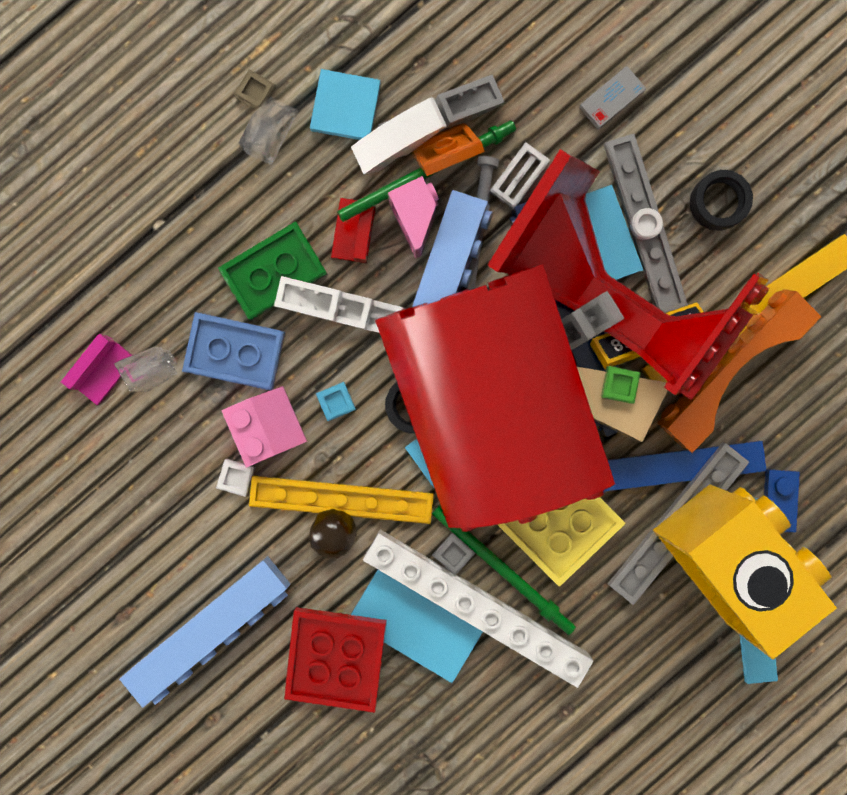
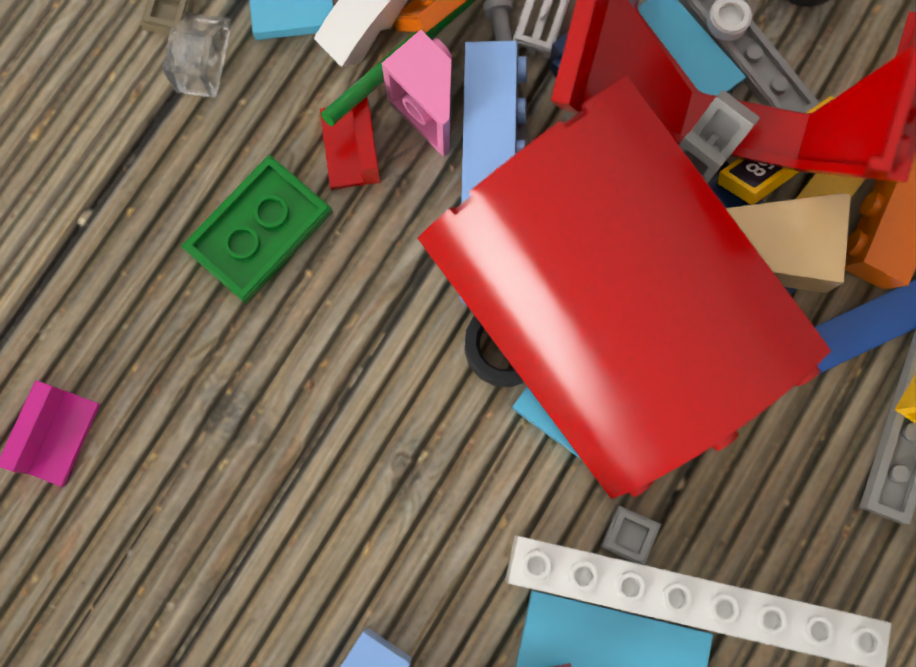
camera: 15 degrees left, 10 degrees down
(147, 369) = (117, 409): clear slope -> none
(233, 351) = (234, 352): medium blue tile -> none
(235, 477) = (287, 527): white tile -> none
(264, 426) = (306, 439): bright pink slope -> none
(331, 304) = (349, 245): white slope -> none
(332, 533) = (450, 562): dark brown hair -> none
(335, 401) = (396, 375): medium azure tile -> none
(352, 499) = (446, 509): yellow tile -> none
(548, 609) = (790, 571): green bar -> none
(566, 536) = (777, 457): light yellow plate -> none
(620, 384) = (785, 213): bright green tile -> none

